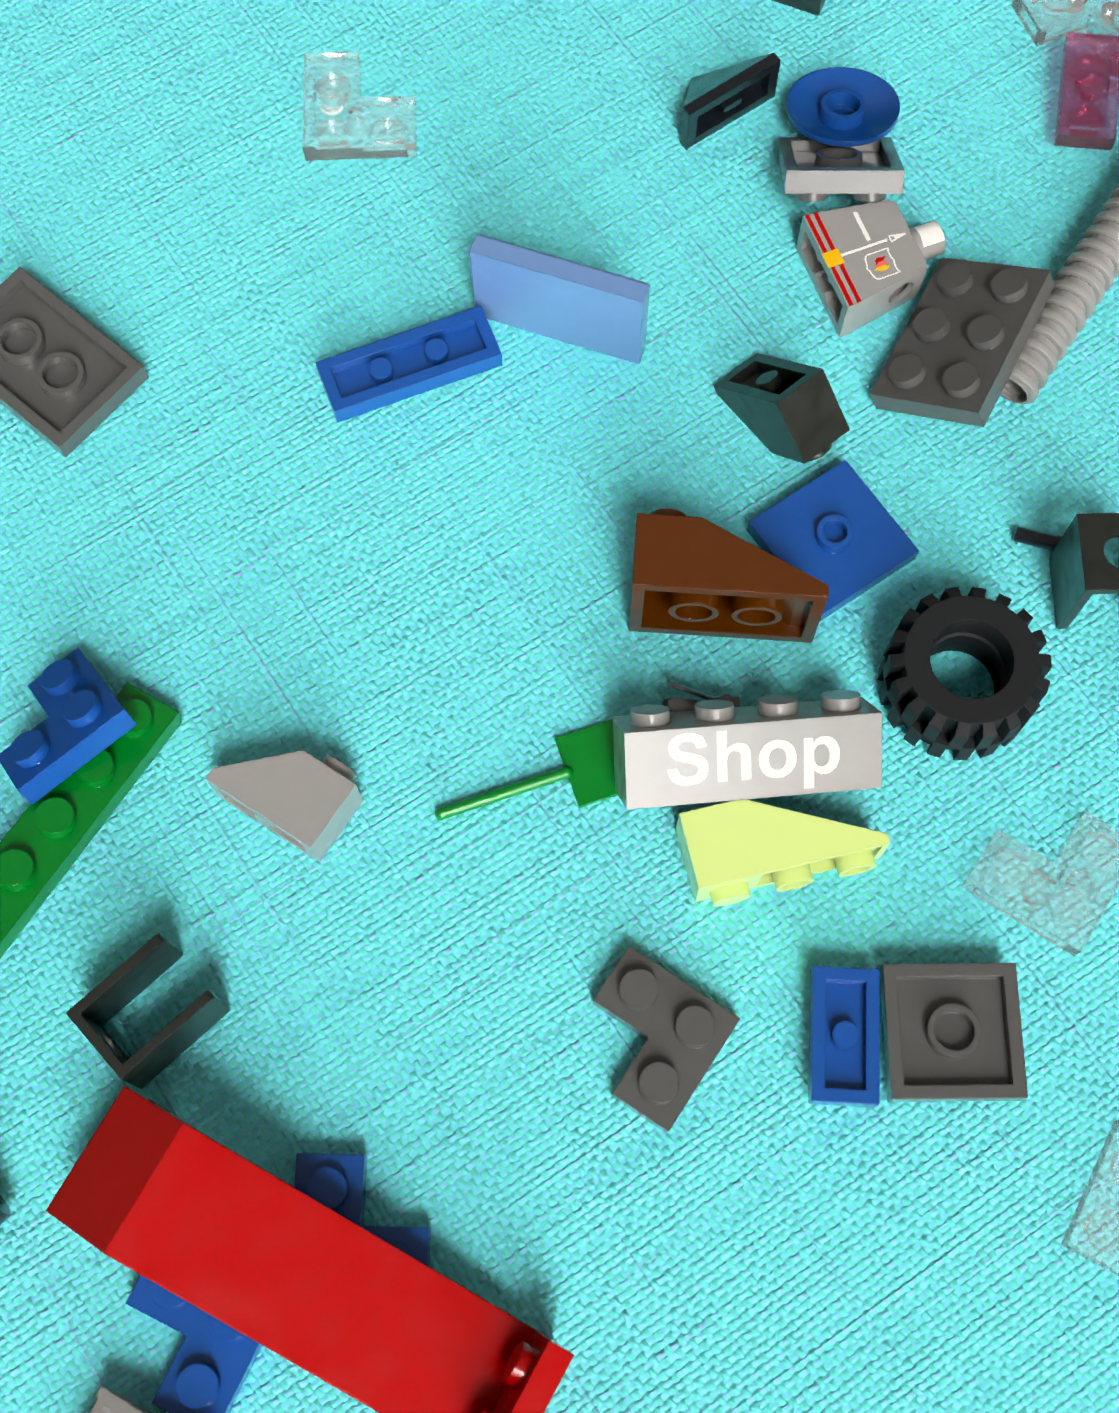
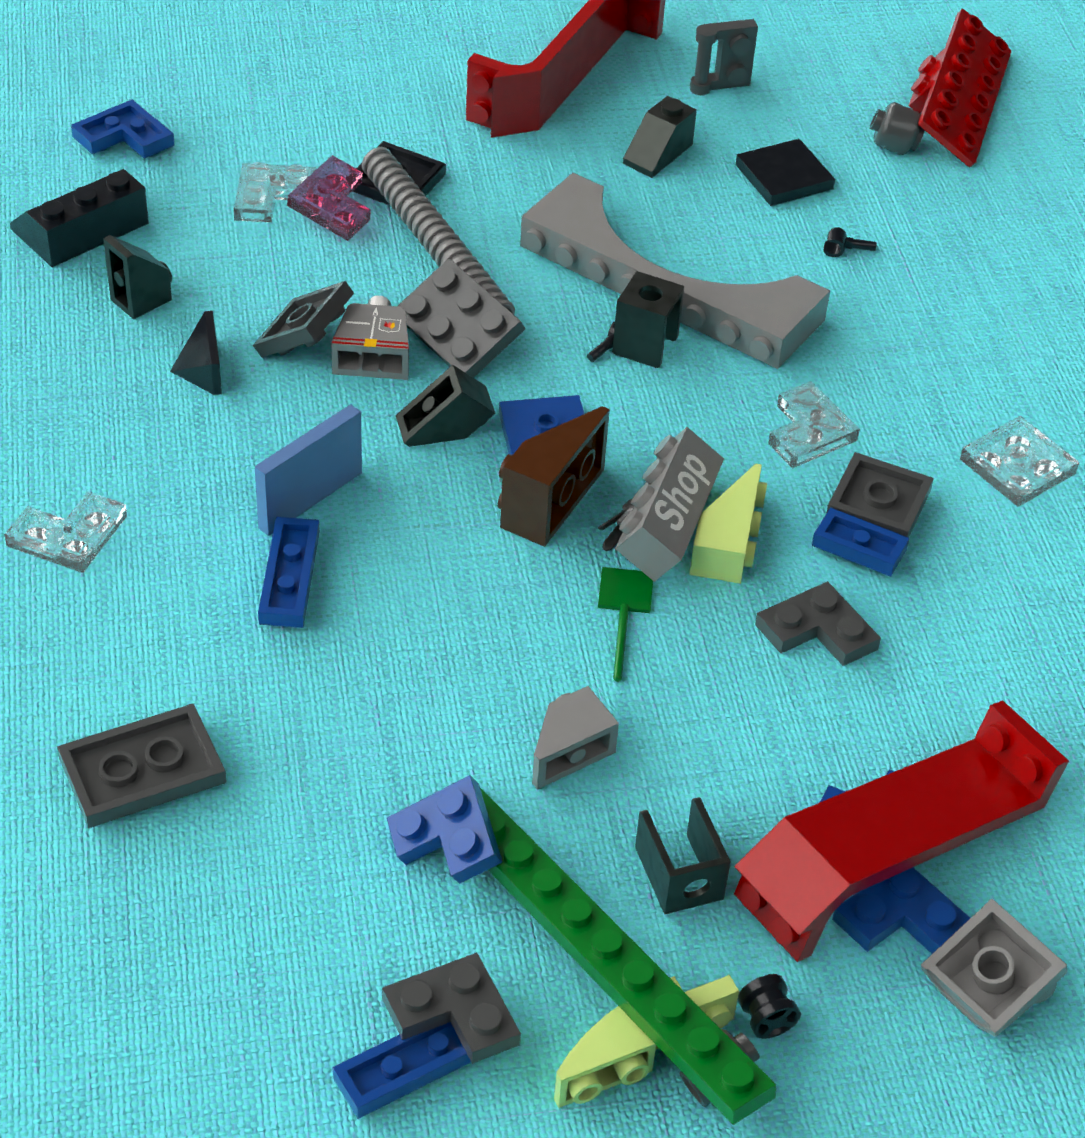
camera: 70 degrees left, 25 degrees down
(843, 106) = (259, 305): blue dish -> none
(990, 635) = (667, 395): black tyre -> none

